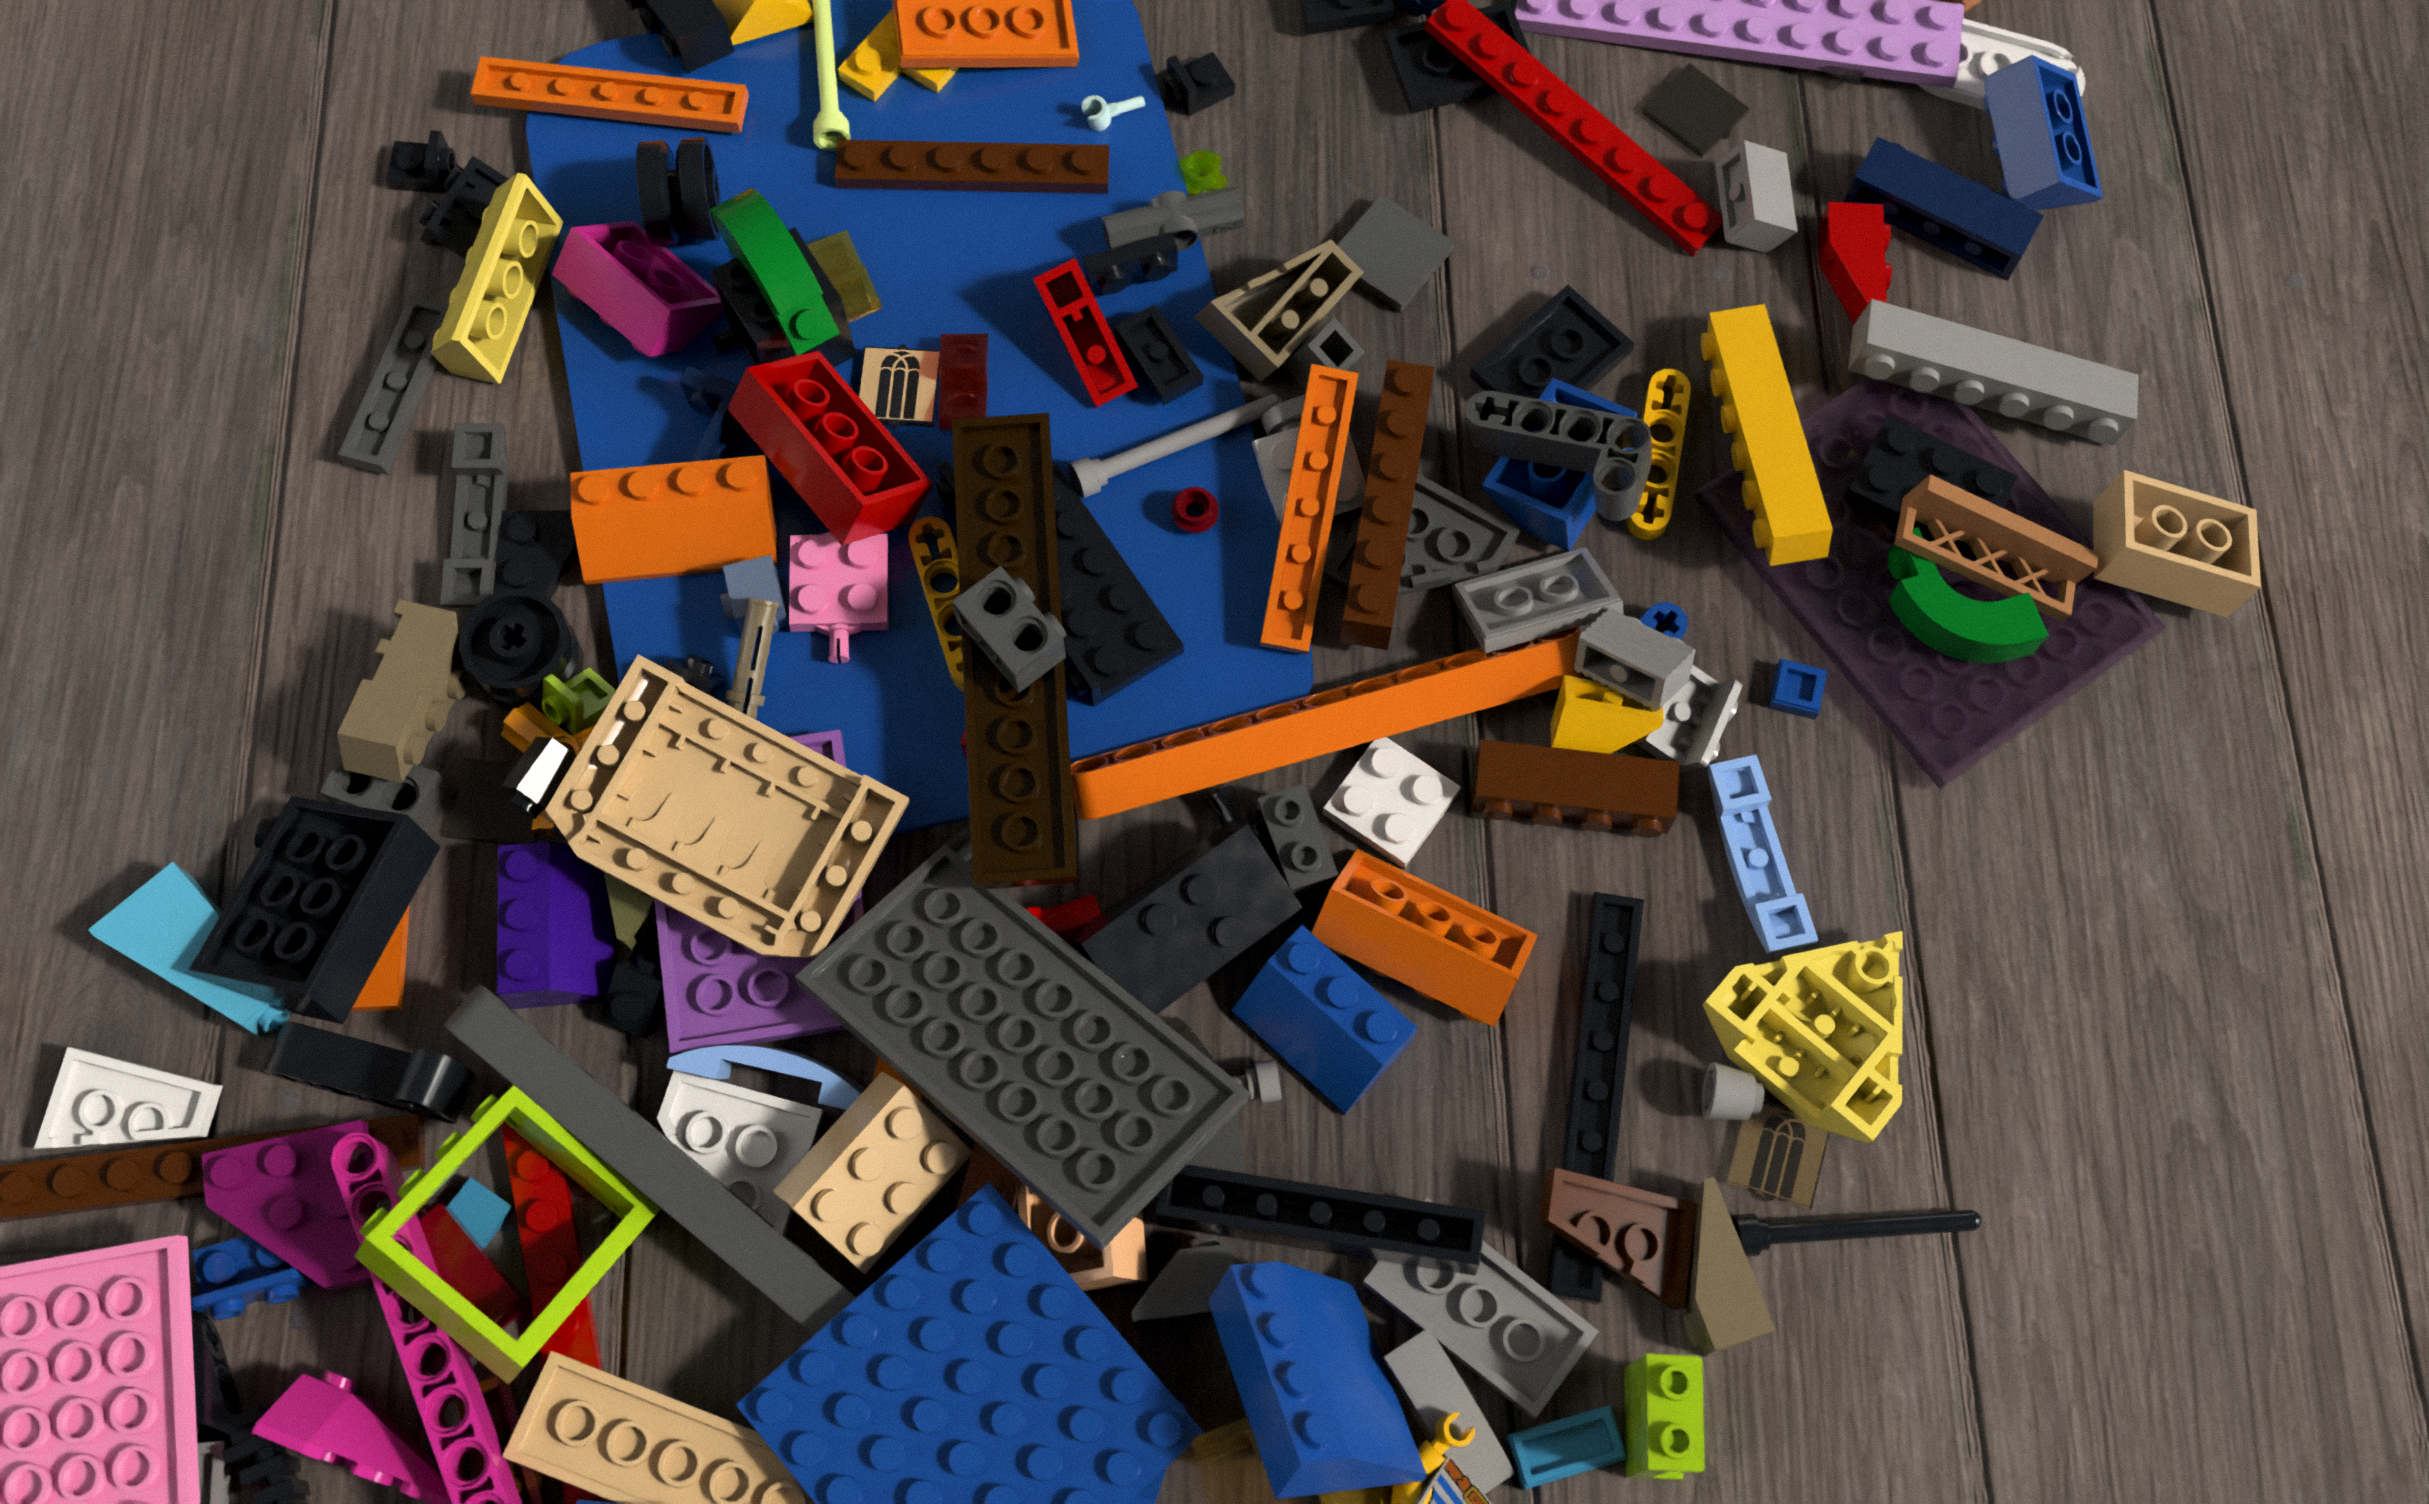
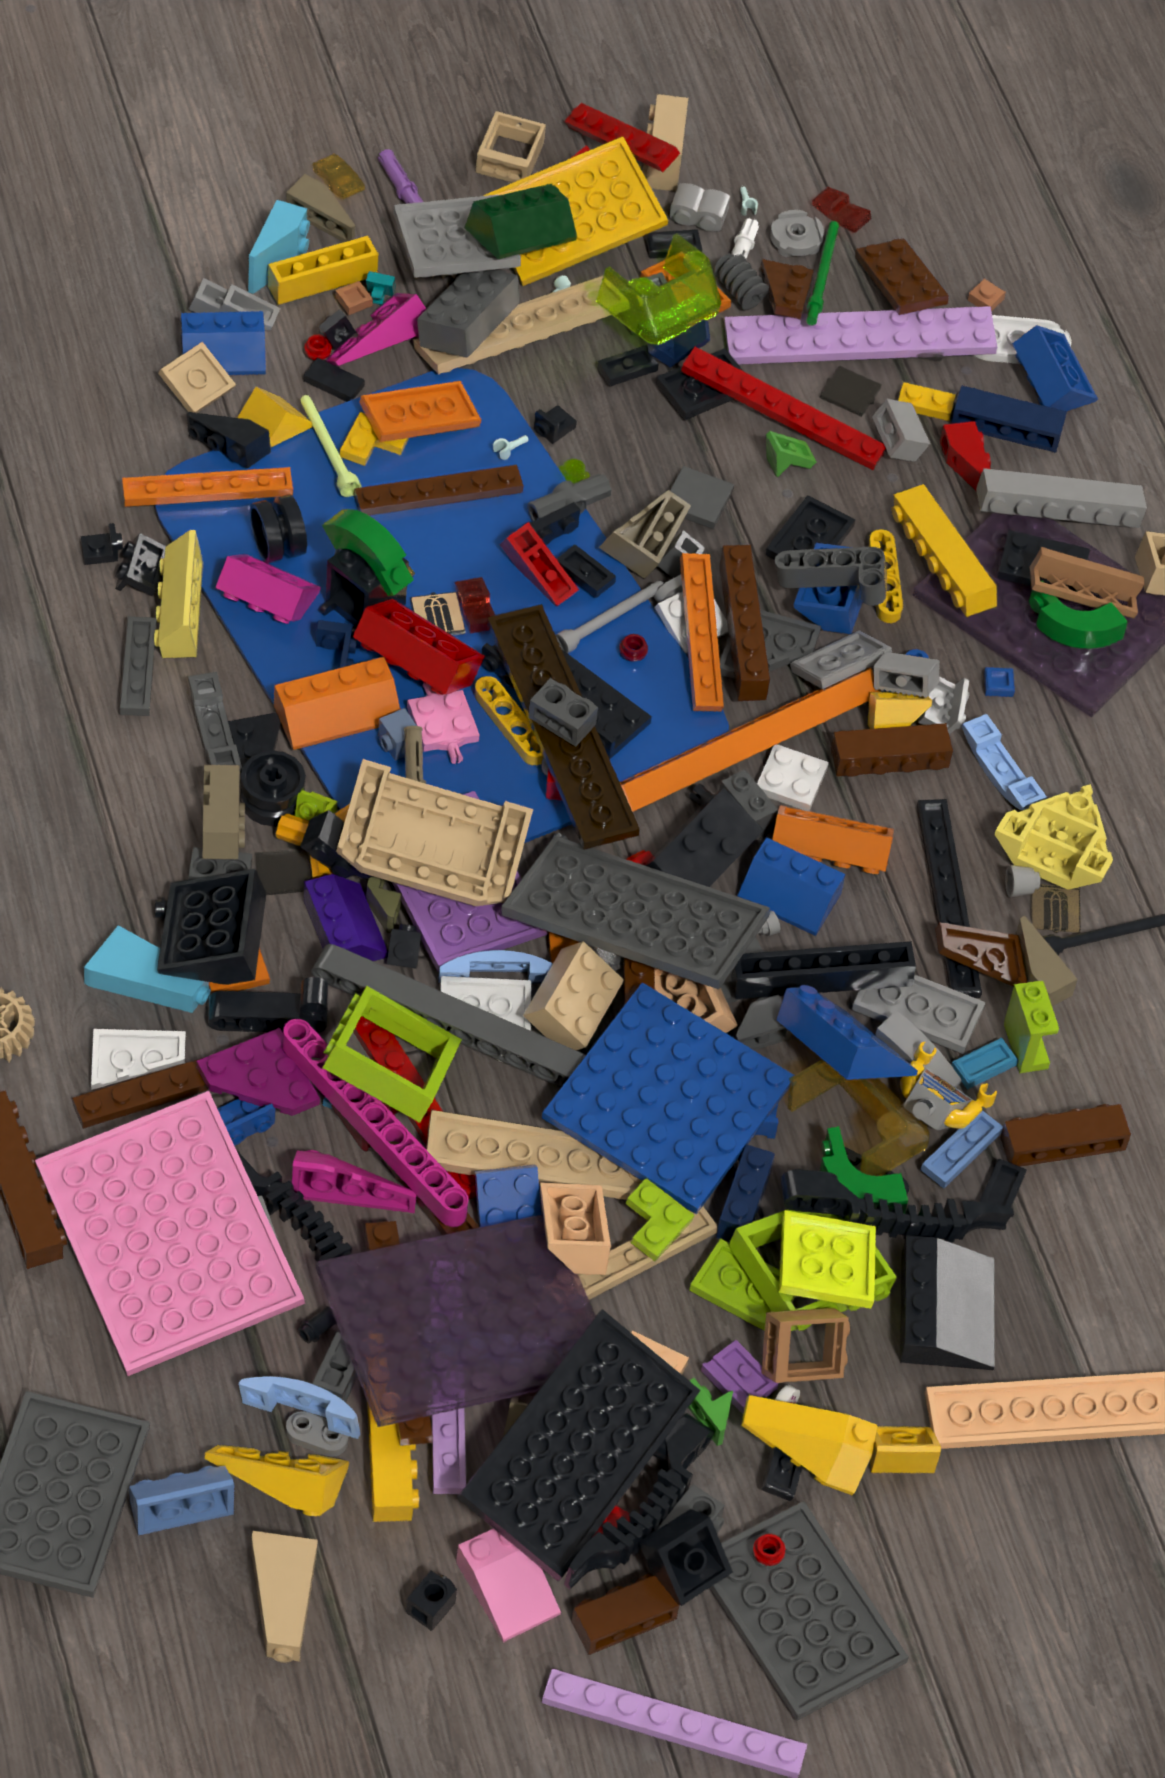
camera: 20 degrees left, 15 degrees down
(1559, 200) = (785, 450): none -> bright green slope
(1816, 150) = (928, 400): none -> yellow plate

